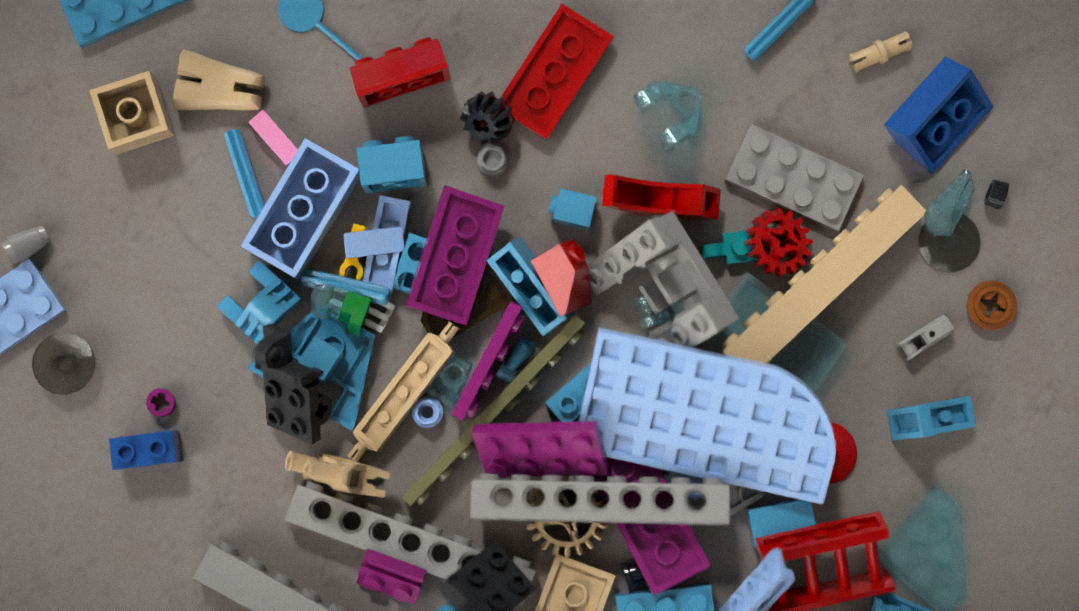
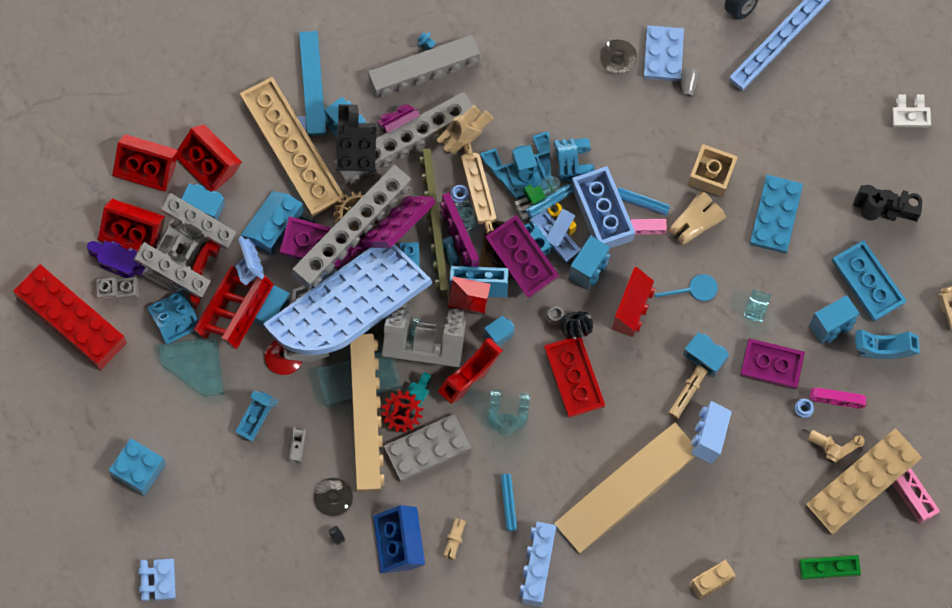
camera: 125 degrees right, 15 degrees down
(145, 450) = (547, 60): blue brick -> none
(153, 407) = (564, 90): magenta bush -> none
(290, 388) = (517, 136): black plate -> none
(949, 206) = (350, 506): clear light blue slope -> none
(1004, 300) = (289, 481): dark orange gear -> none

